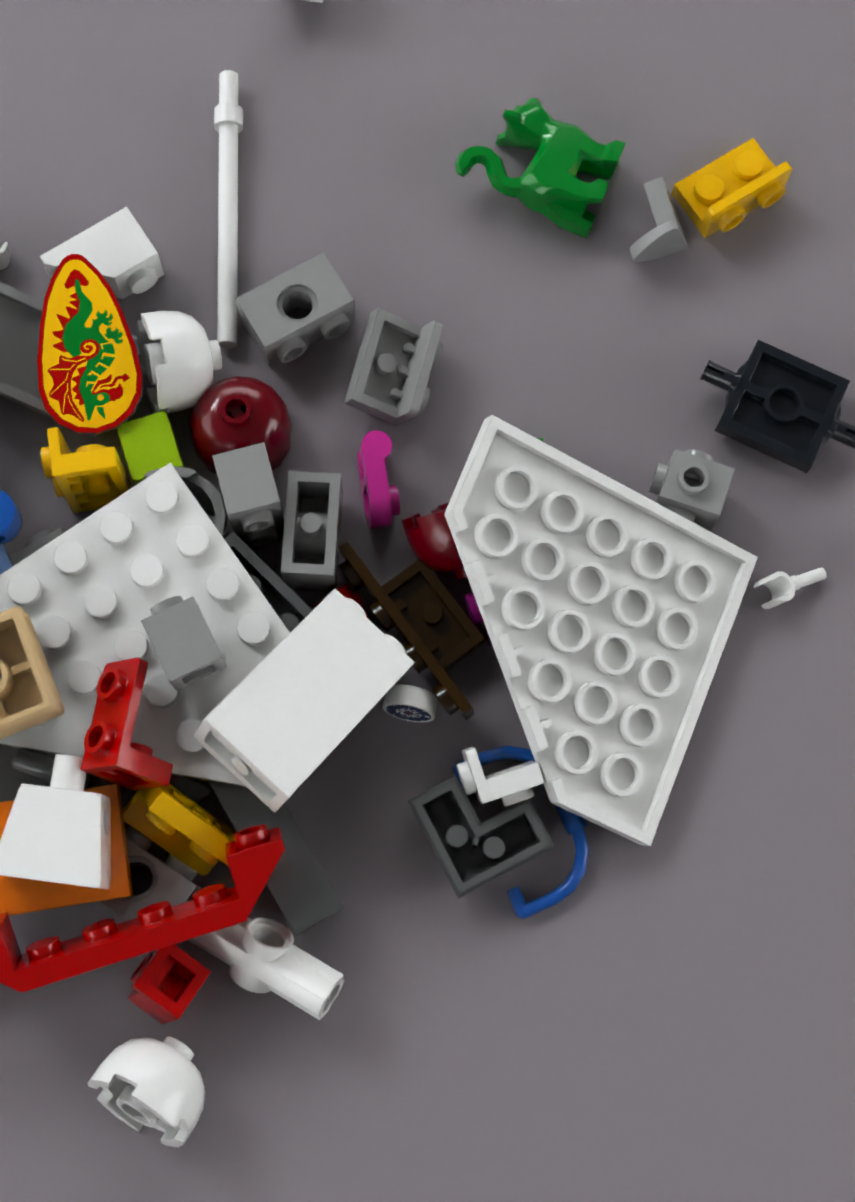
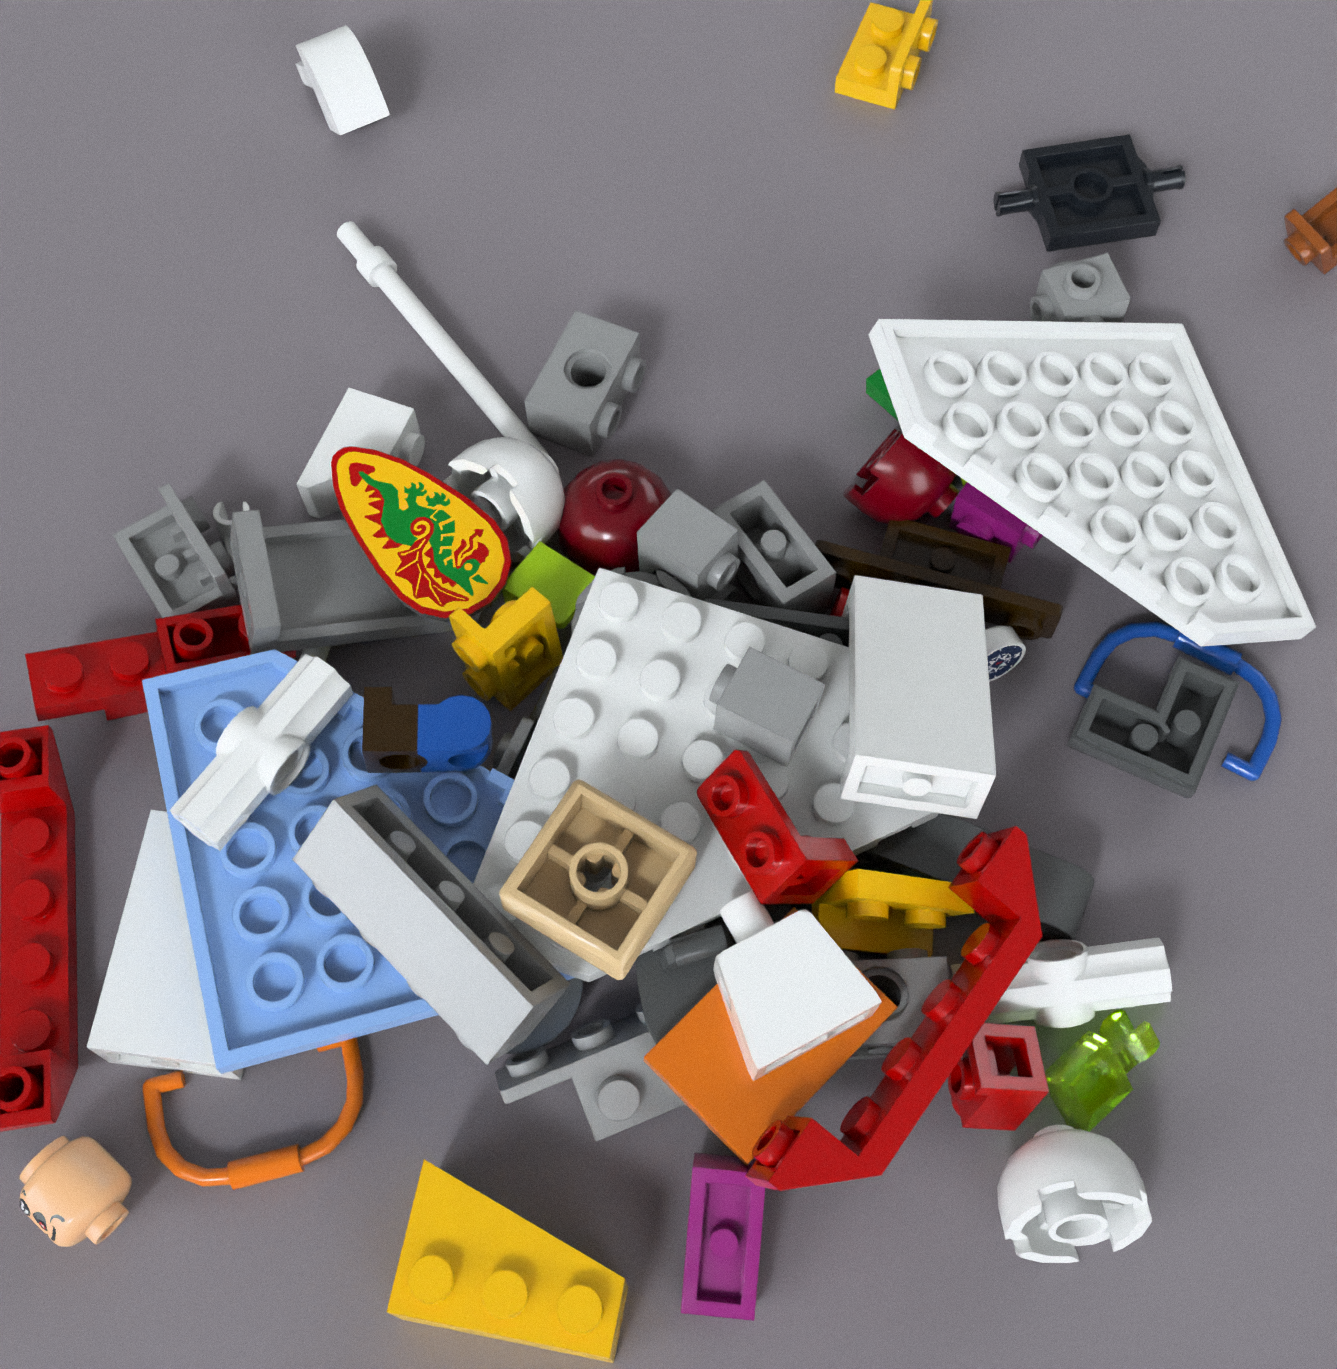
camera: 30 degrees left, 10 degrees down
(235, 1029) = (1093, 1071): none -> clear neon green plate
(378, 497) = (802, 491): dark pink plate -> none
(394, 367) = (722, 373): light grey bracket -> none
(508, 784) = (1147, 659): white bracket -> none
(550, 179) = (731, 121): green animal -> none
(668, 235) = (858, 107): light grey tile -> none
(784, 586) = (1223, 336): white hand -> none

